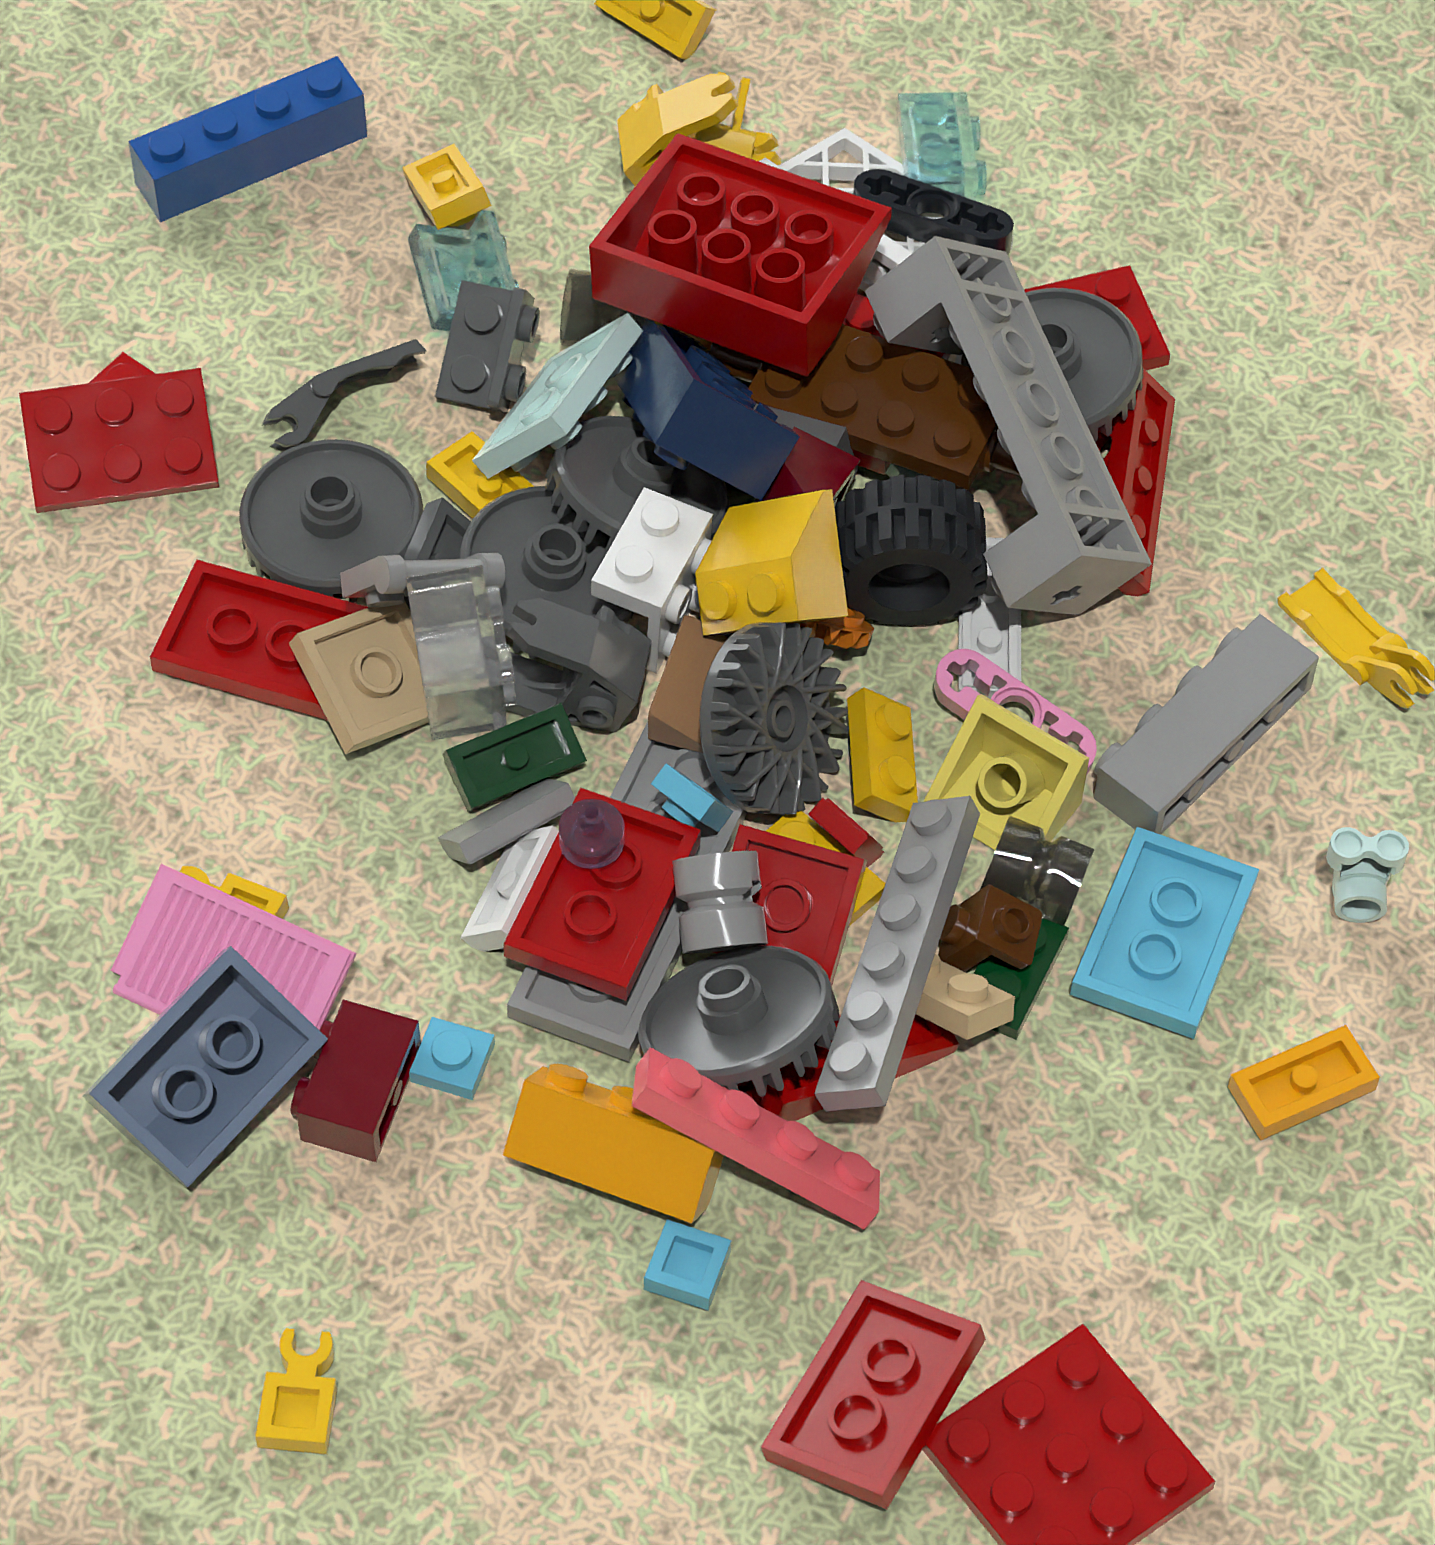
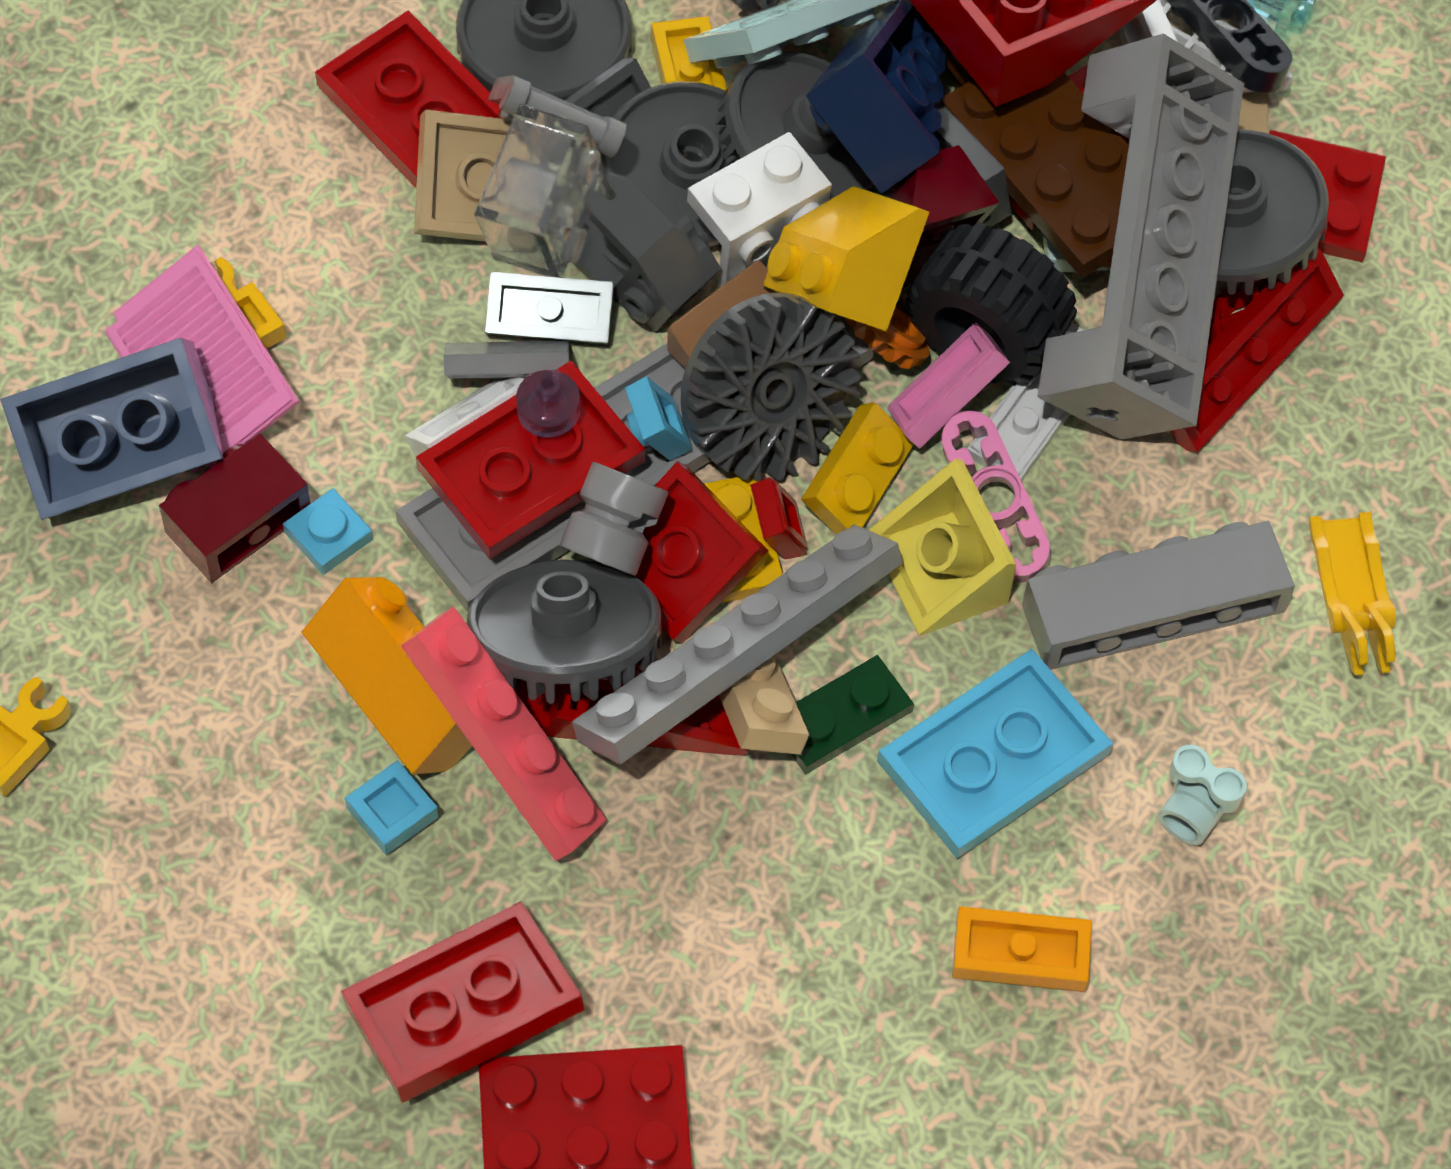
camera: 30 degrees right, 5 degrees up
(914, 640) = (948, 384): none -> bright pink tile
(990, 925) = (838, 665): reddish brown bracket -> none
(1038, 869) = (917, 642): clear smoke wheel -> none

